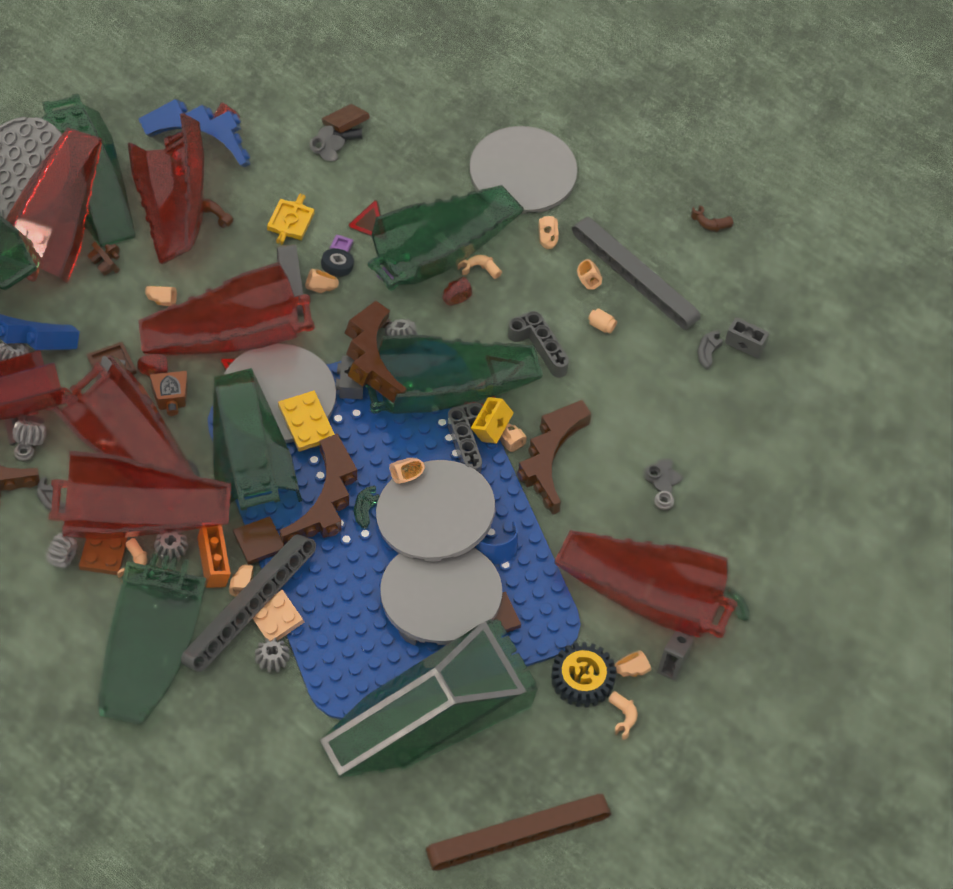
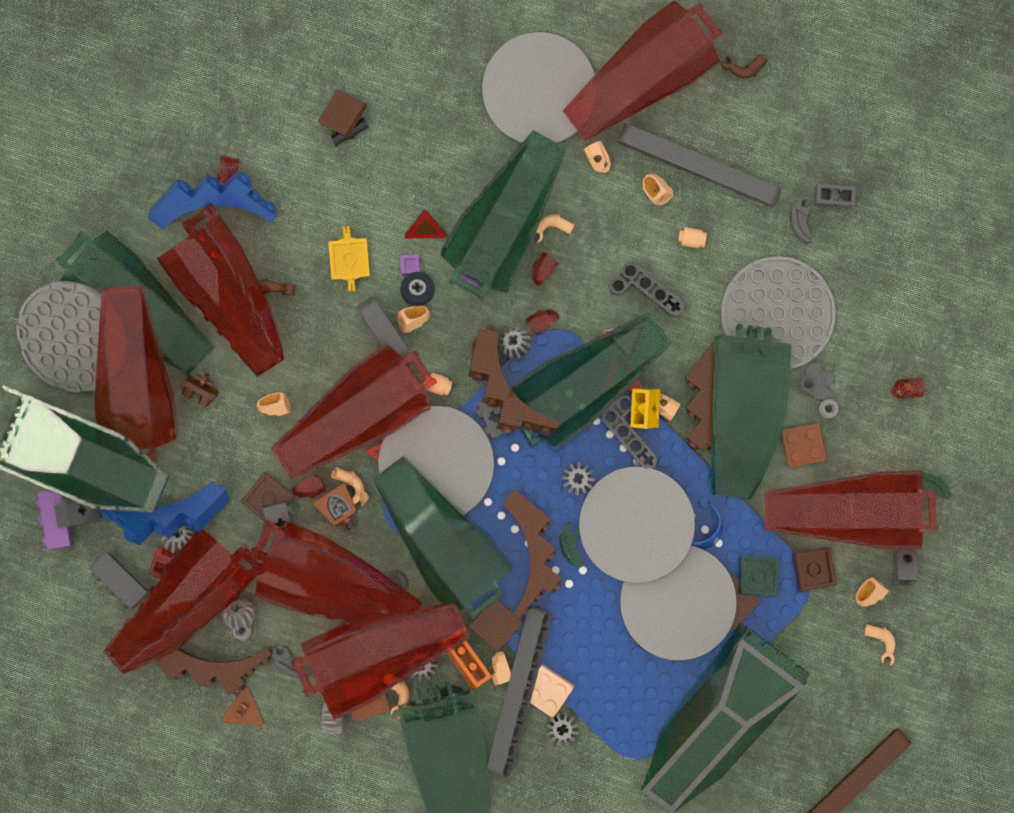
camera: 25 degrees left, 30 degrees up
(194, 376) = (352, 479): none -> light nougat piece
(305, 420) = (478, 484): yellow plate -> none
(316, 339) = (442, 387): none -> light nougat brick
(330, 144) = (341, 150): dark grey plate -> none
(399, 450) = (571, 476): none -> light grey gear
(406, 470) = (594, 498): rock -> none
(434, 327) = (541, 320): none -> clear red rock
(529, 600) = (759, 576): none -> clear green plate
(575, 662) = (851, 626): wheel -> none
(583, 461) = (747, 409): none -> clear green windscreen
(586, 622) = (814, 569): none -> reddish brown tile
(625, 520) = (803, 445): none -> dark orange plate
(632, 182) = (652, 65): none -> clear red windscreen
(652, 410) = (787, 299): none -> light grey tile
(747, 514) = (908, 388): none -> clear red rock

